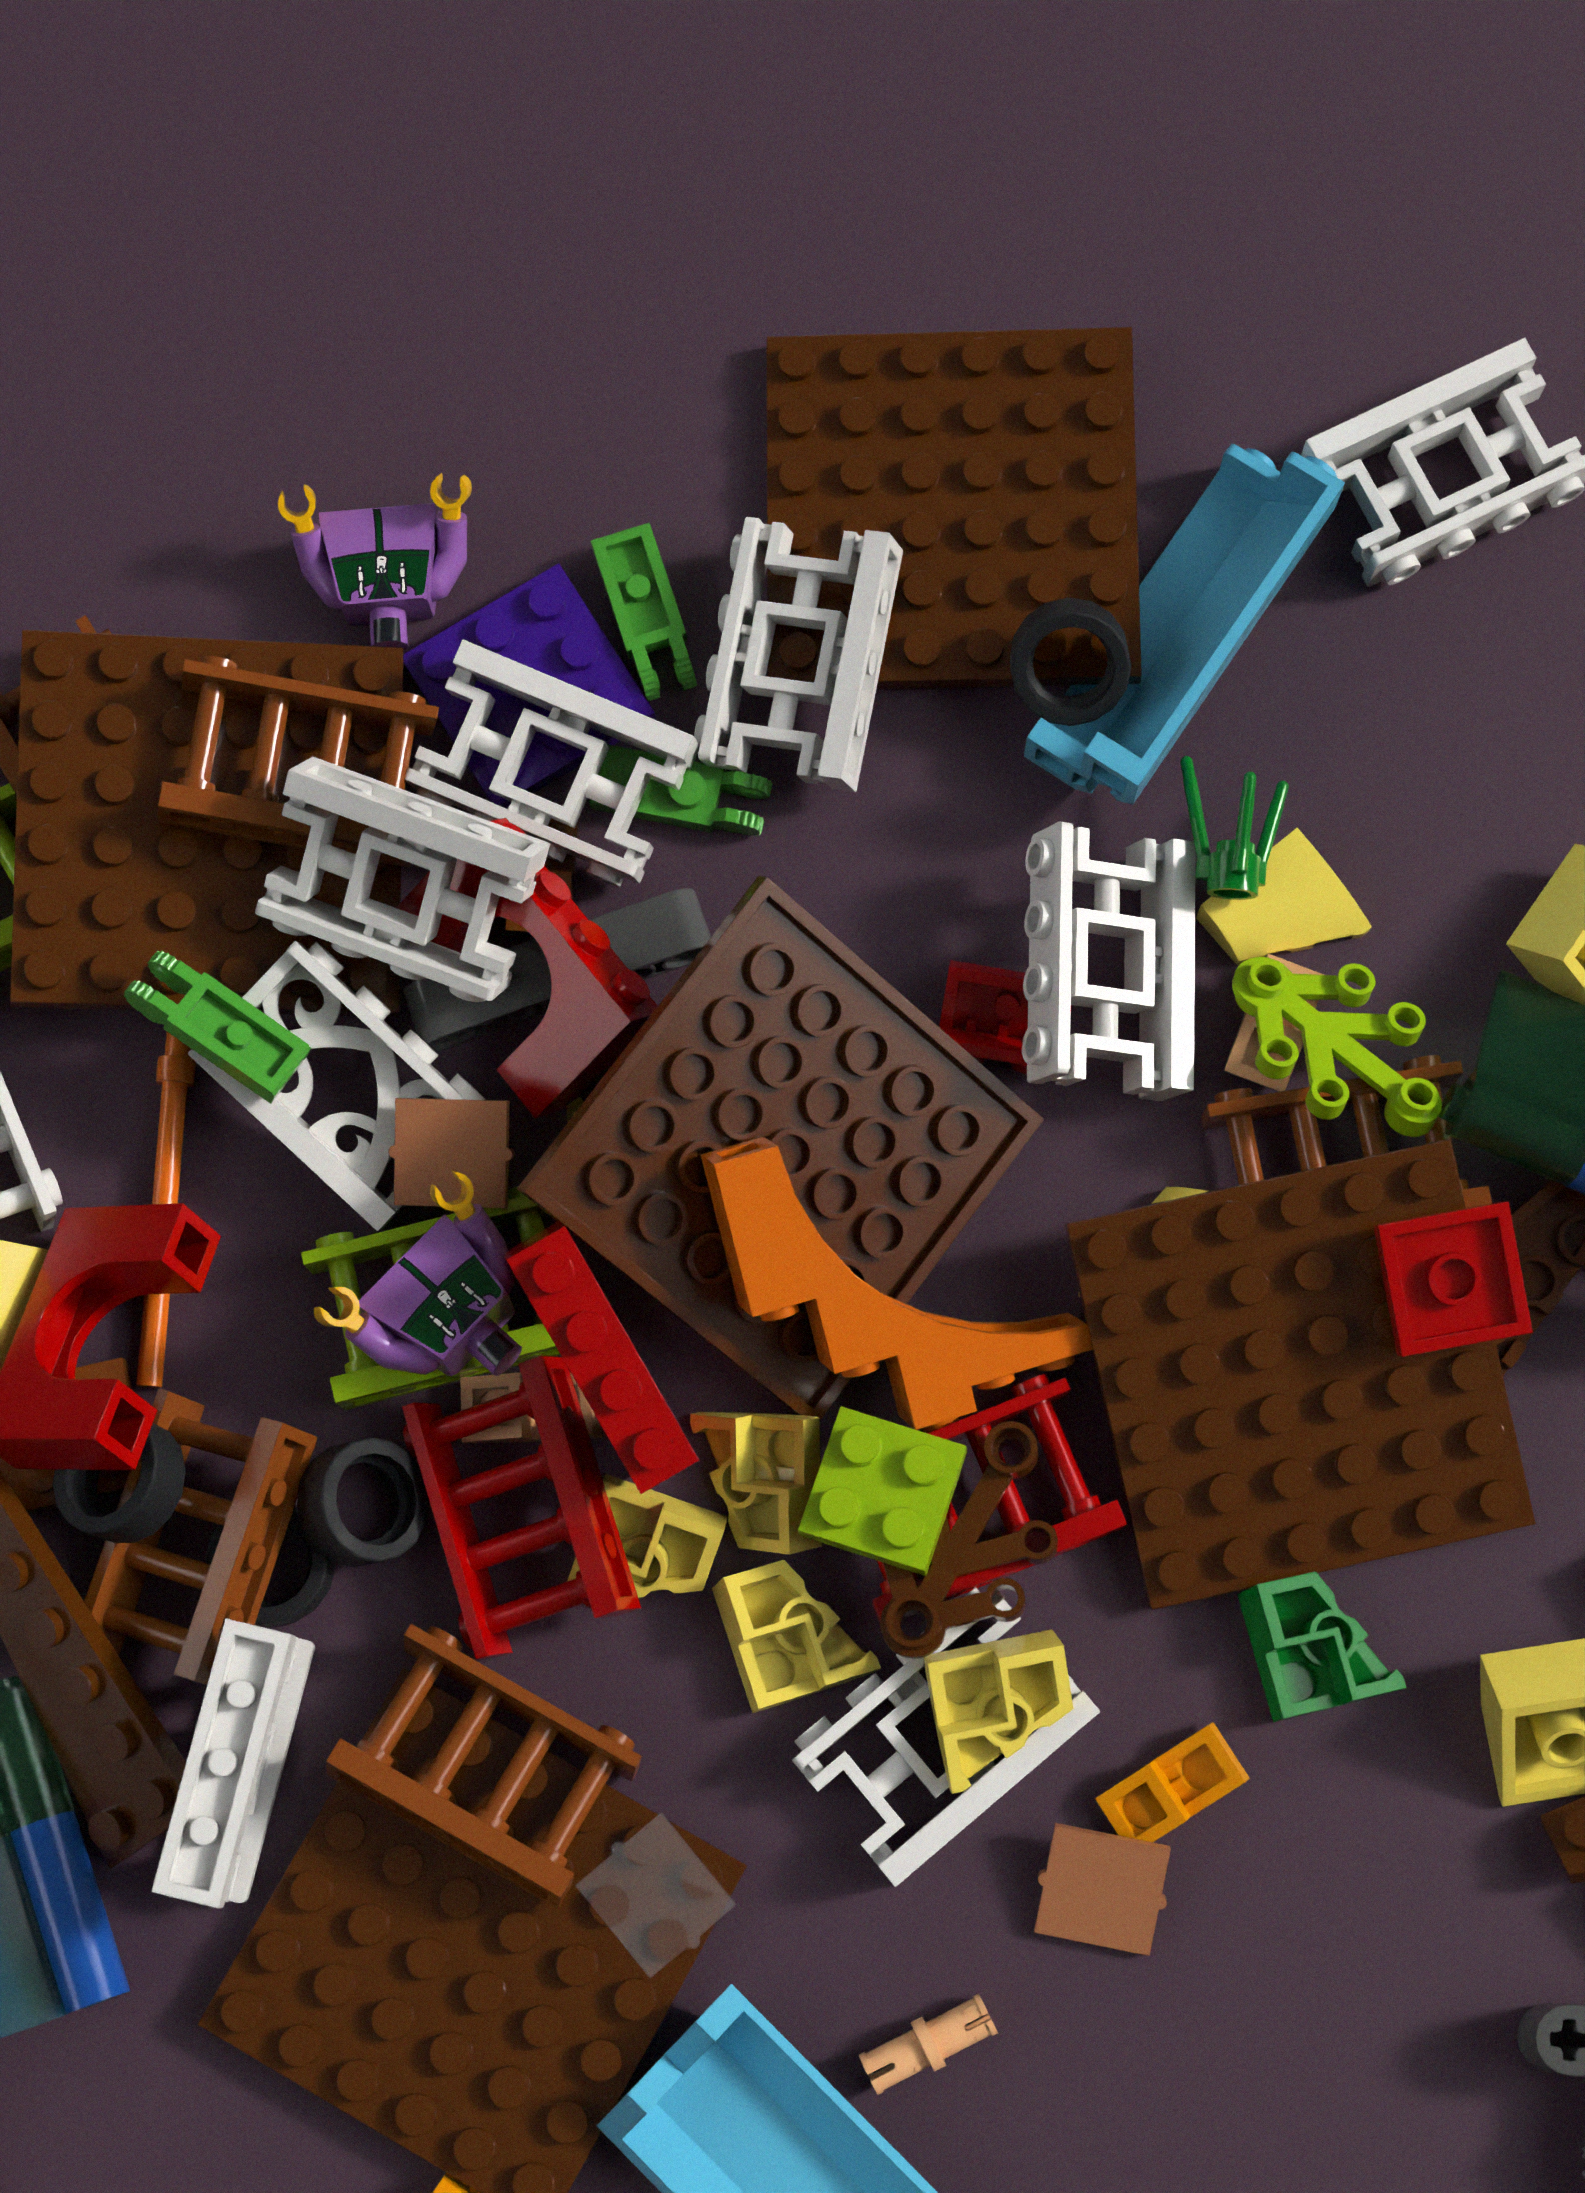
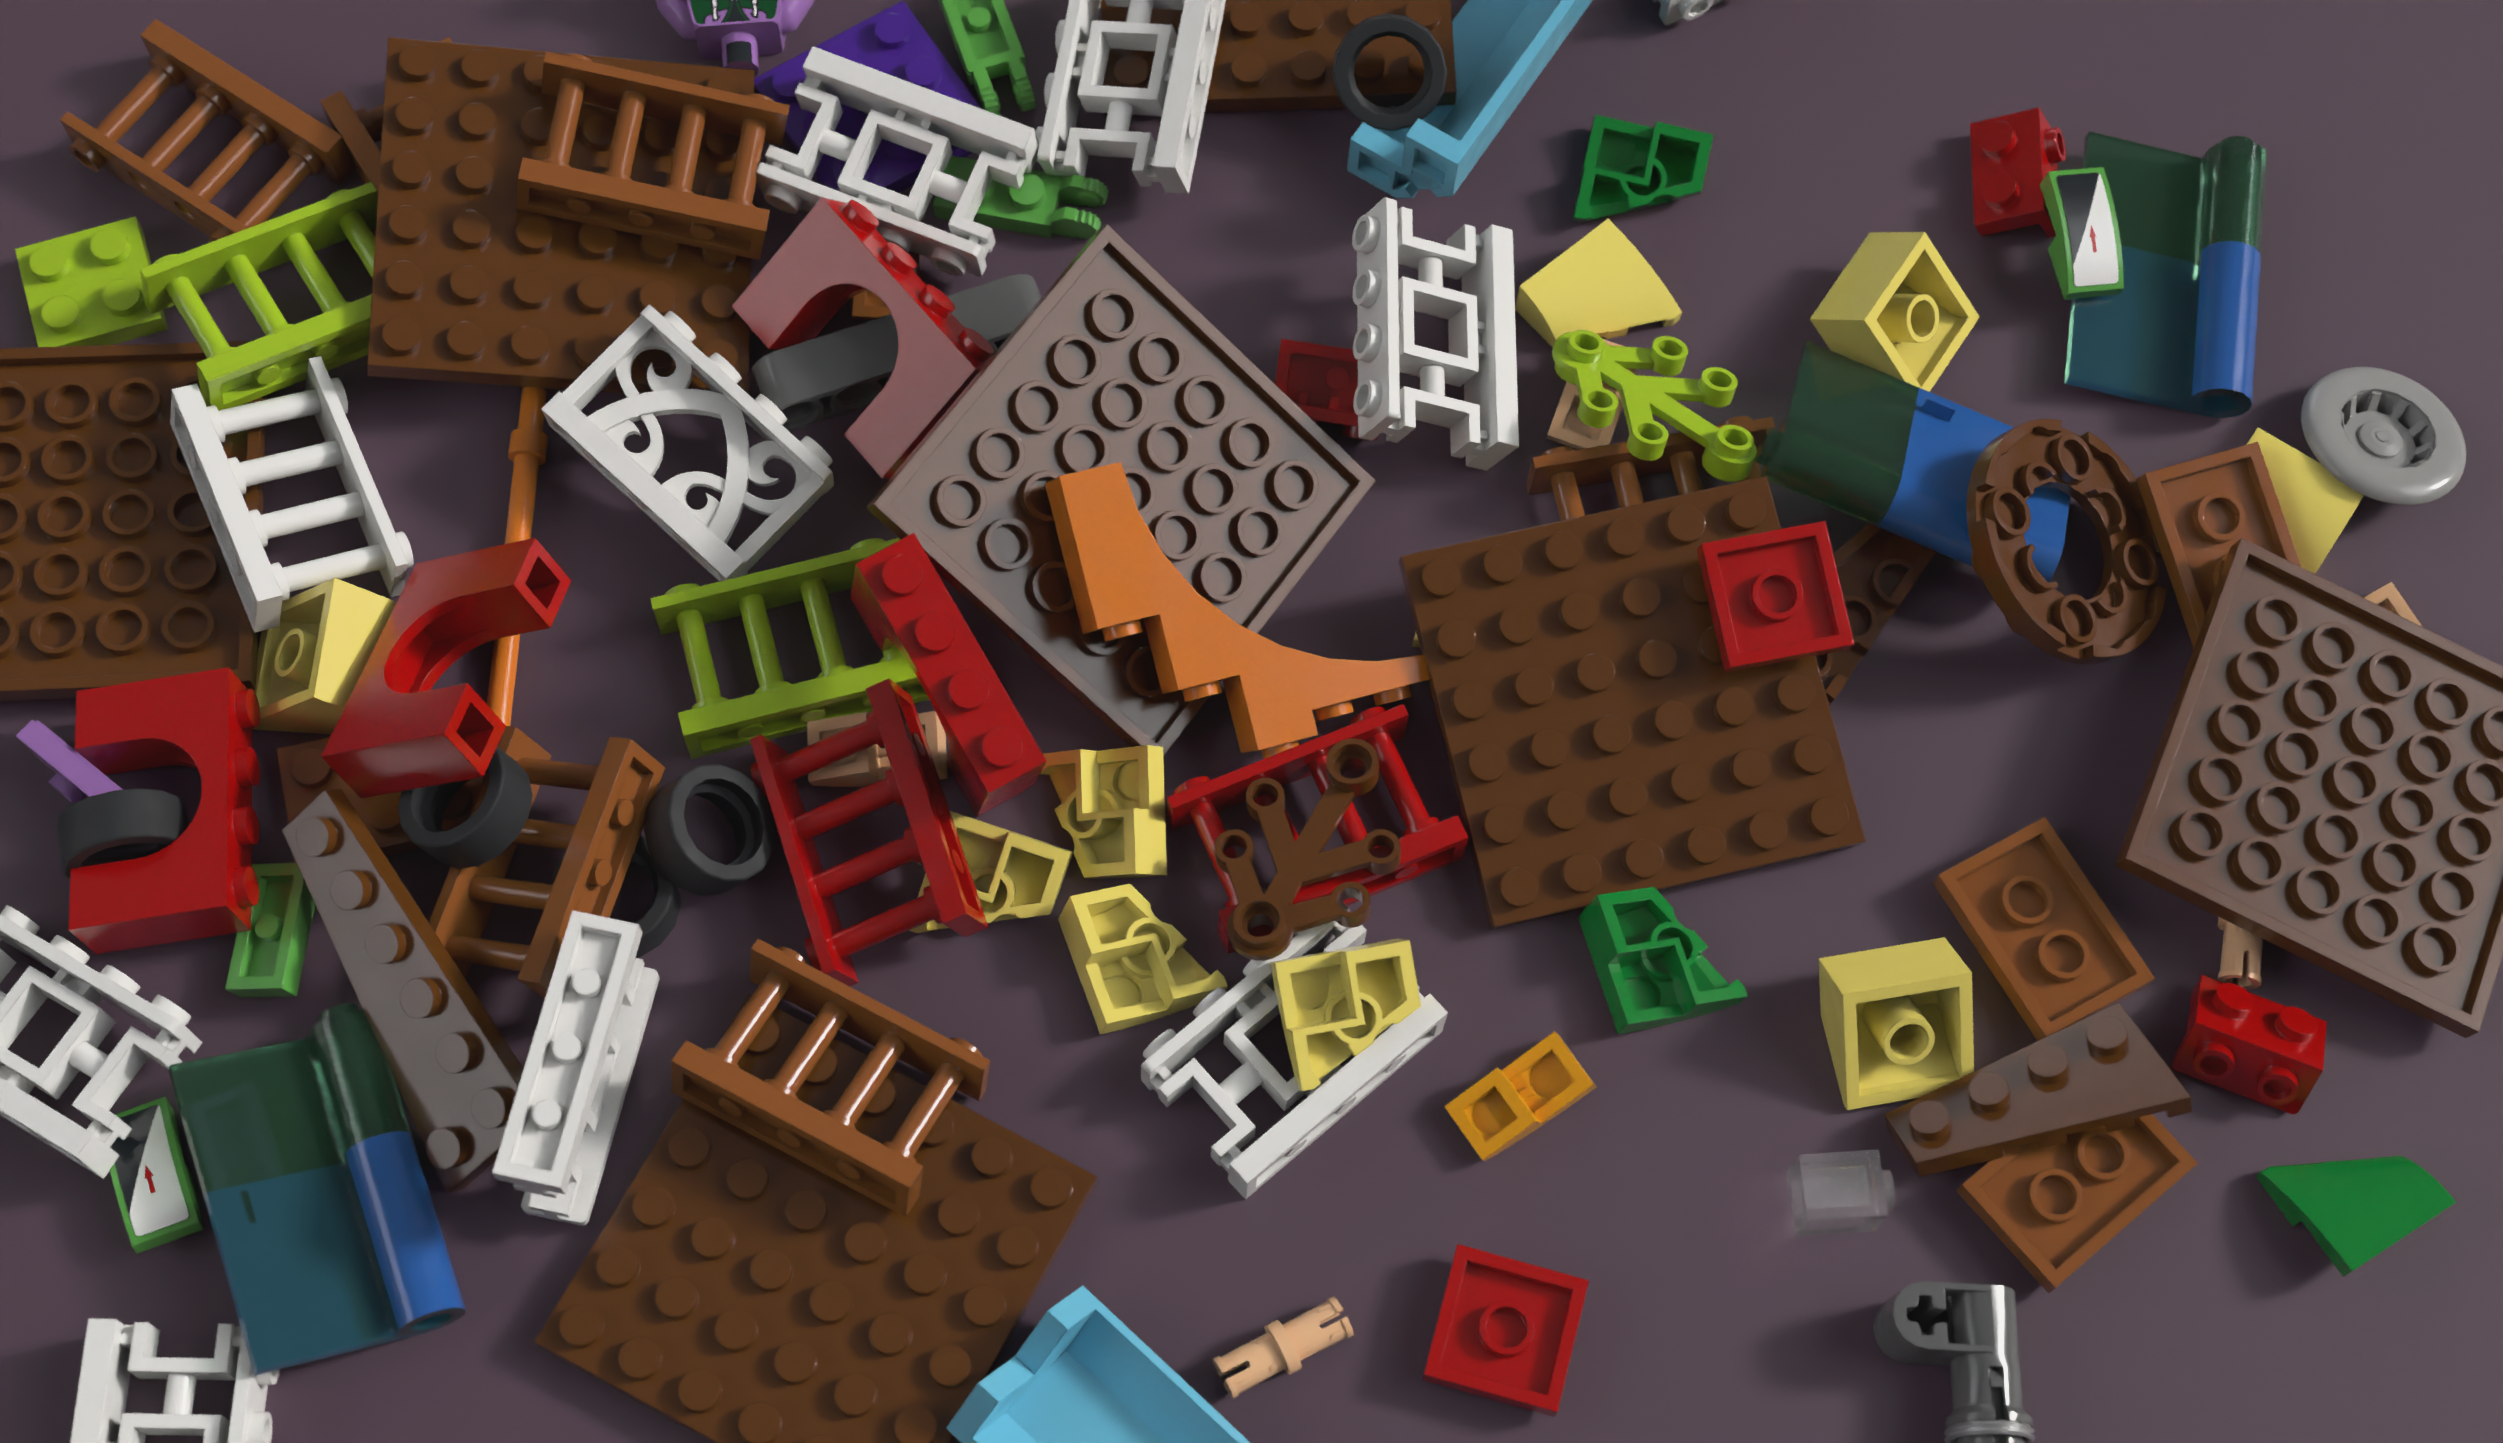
camera: 10 degrees left, 10 degrees down
(220, 1026) = (573, 377): bright green hinge -> none
(417, 833) = (763, 201): white fence -> none
(439, 1298) = (787, 631): medium lavender torso -> none
(449, 1136) = (800, 502): nougat piece -> none
(655, 1895) = (1005, 1201): clear piece -> none
(883, 1491) = (1227, 805): lime plate -> none
(1102, 1889) = (1453, 1192): nougat piece -> none
(1149, 2033) = (1506, 1330): none -> red plate
(1234, 868) = (1550, 247): green plant -> none
(1333, 758) = (1639, 167): none -> green slope
(1490, 1900) = (1839, 1192): none -> clear brick

